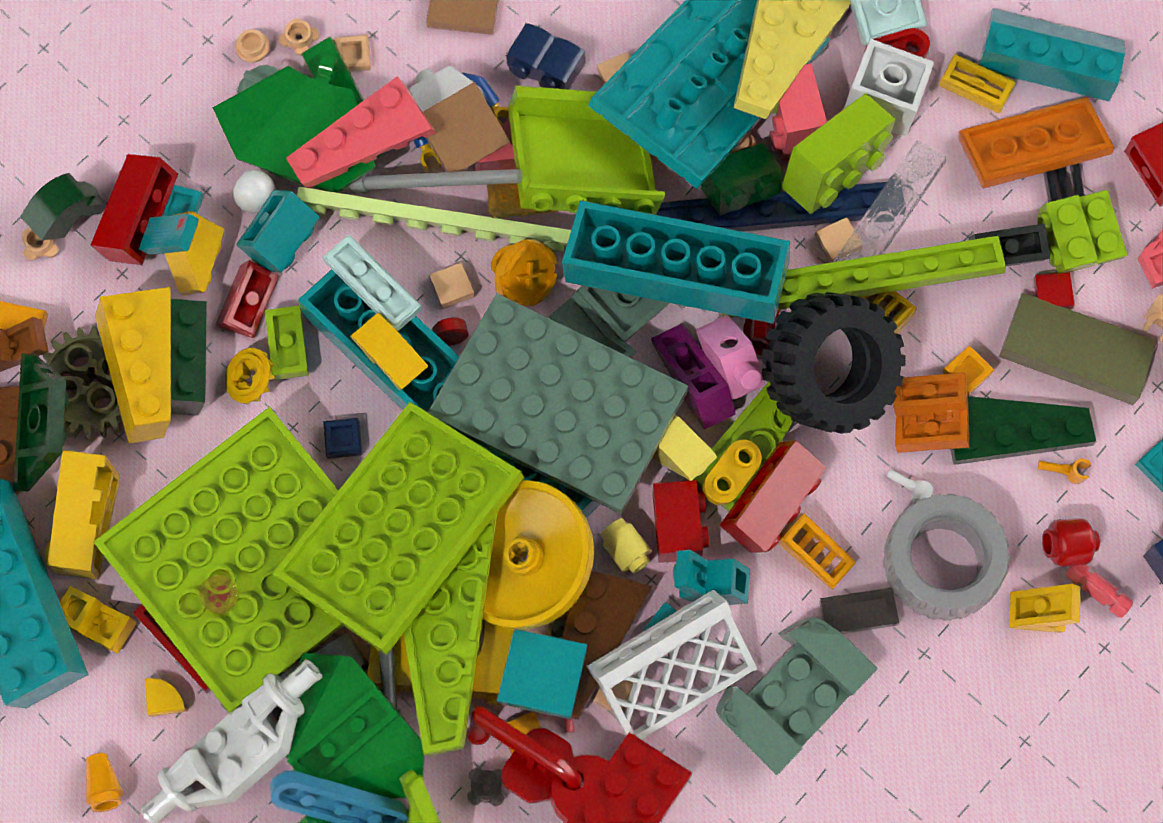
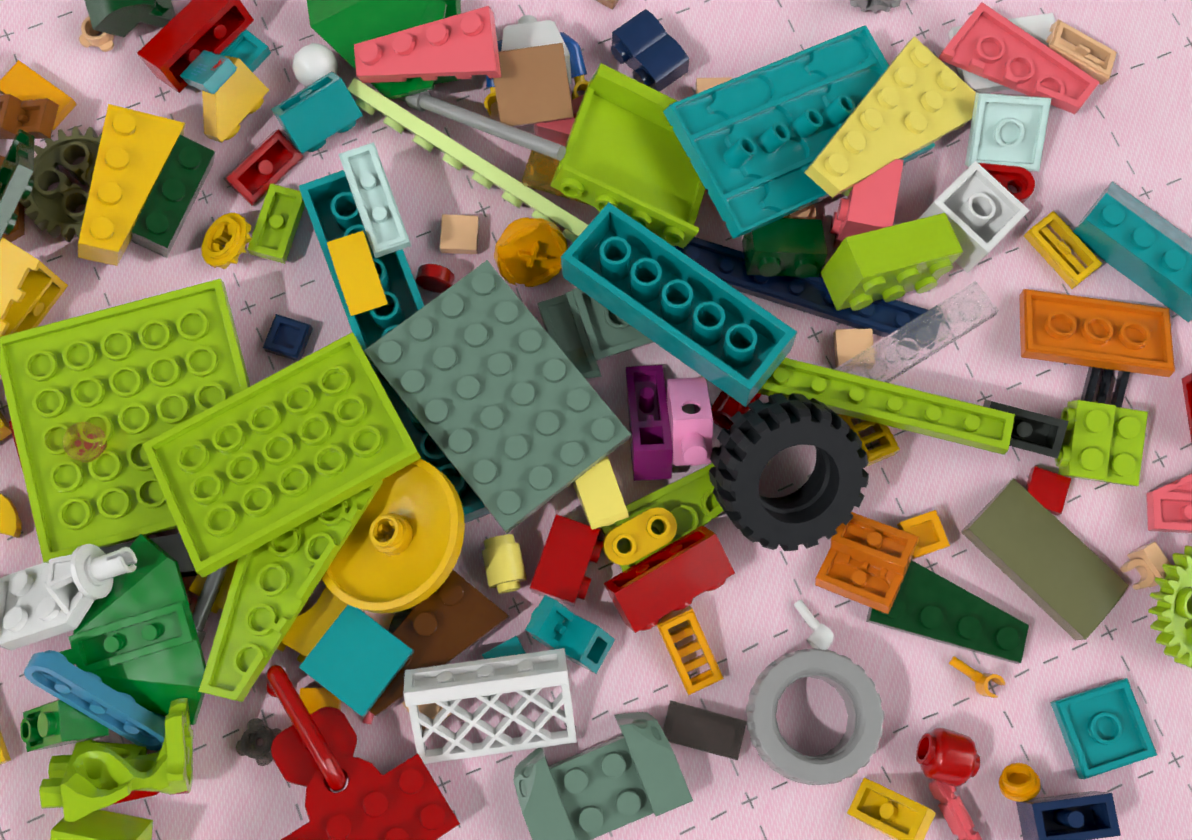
camera: 20 degrees right, 5 degrees up
(1138, 538) = (1019, 782): none -> light orange plate

